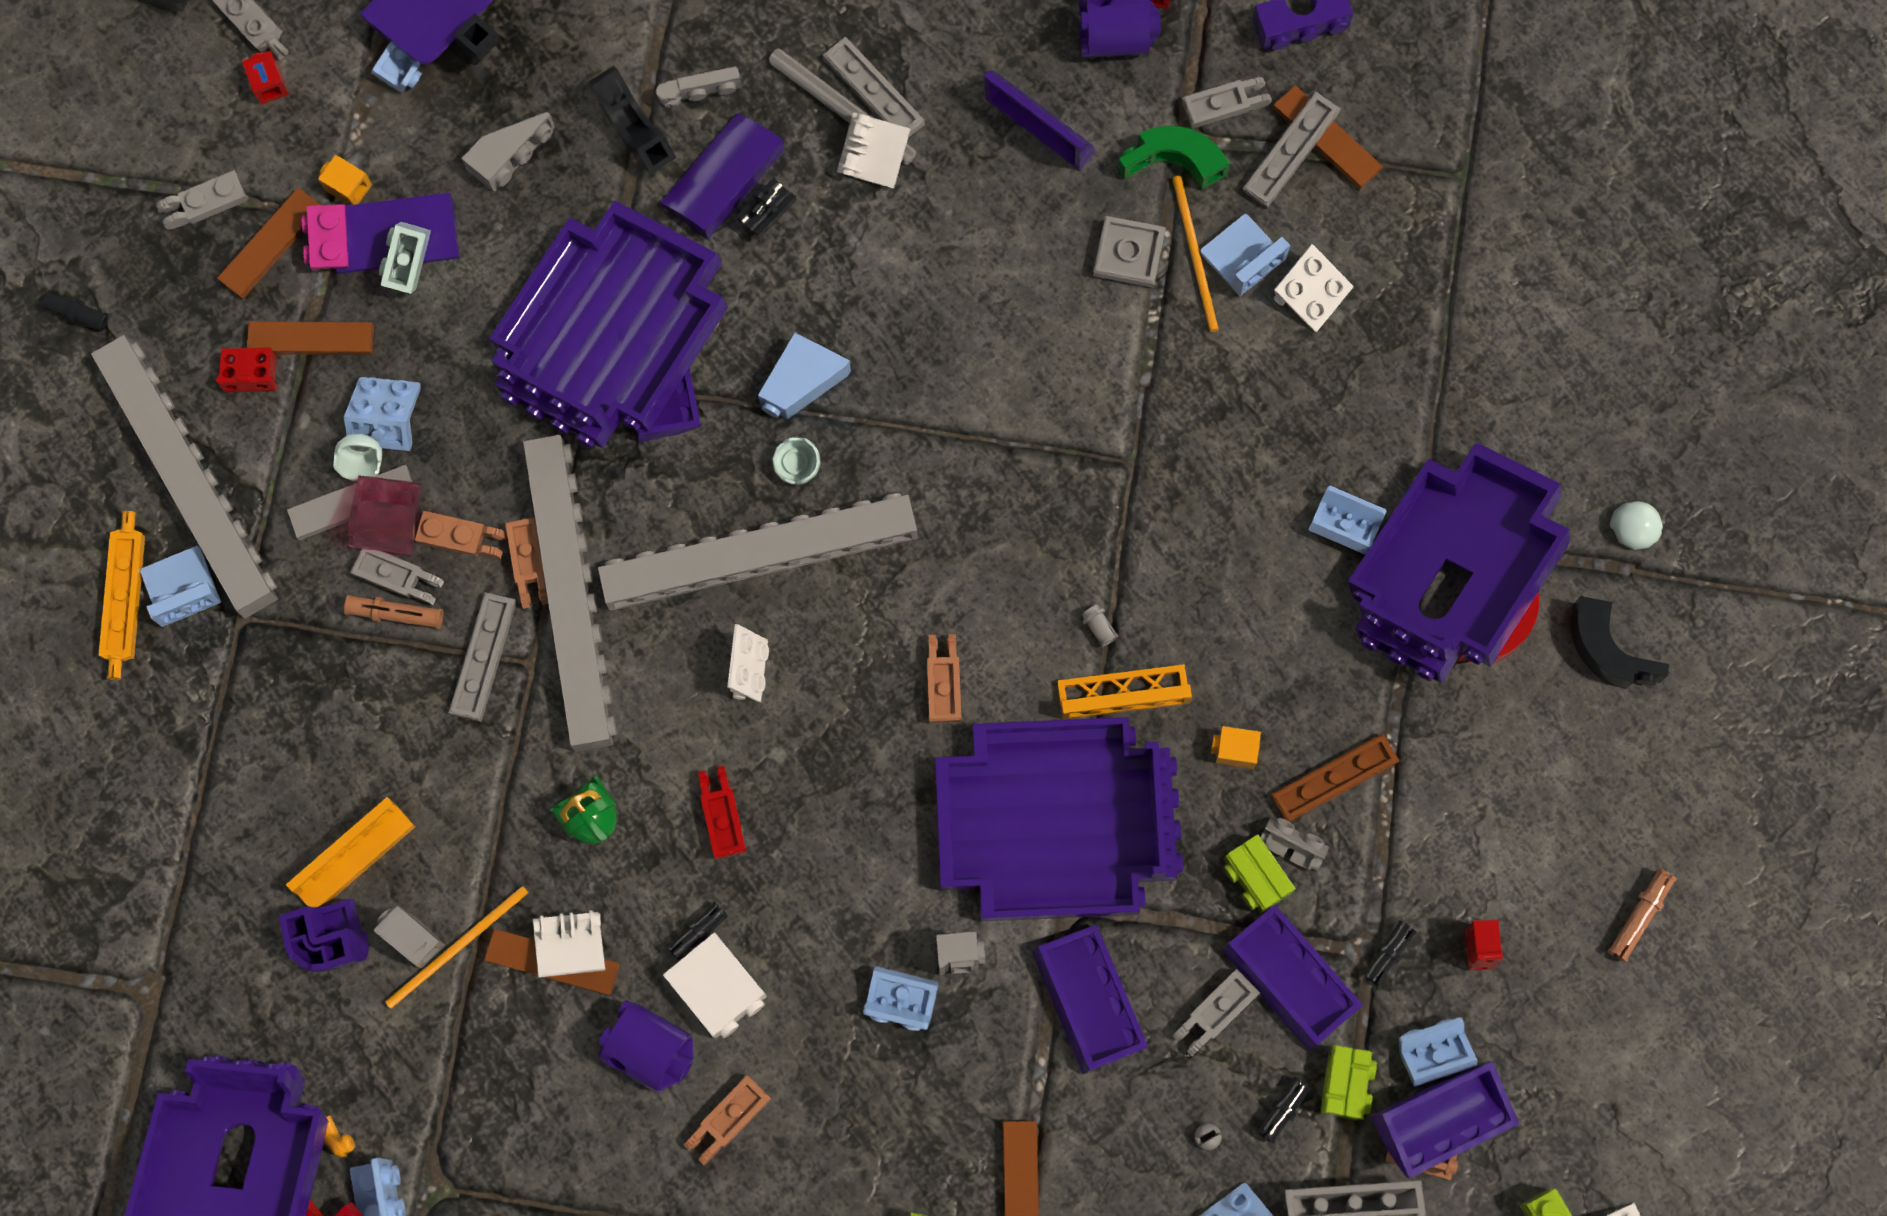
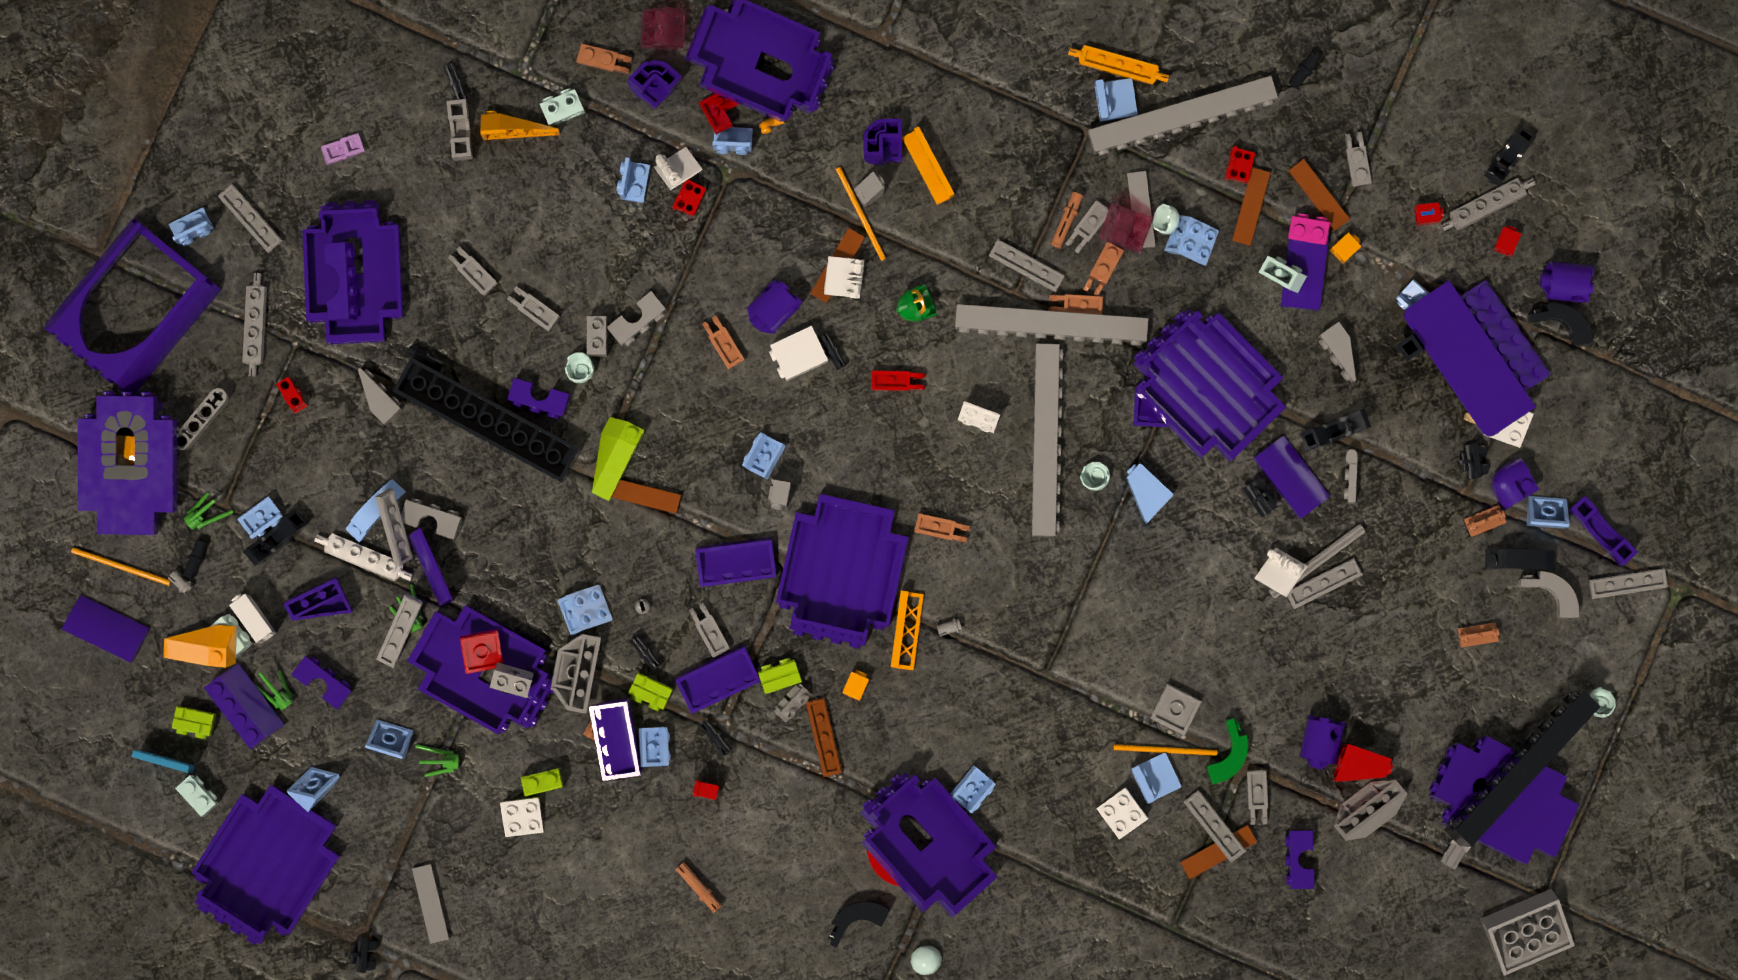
camera: 100 degrees right, 10 degrees up
(1037, 120) = (1274, 678): dark purple slope -> none

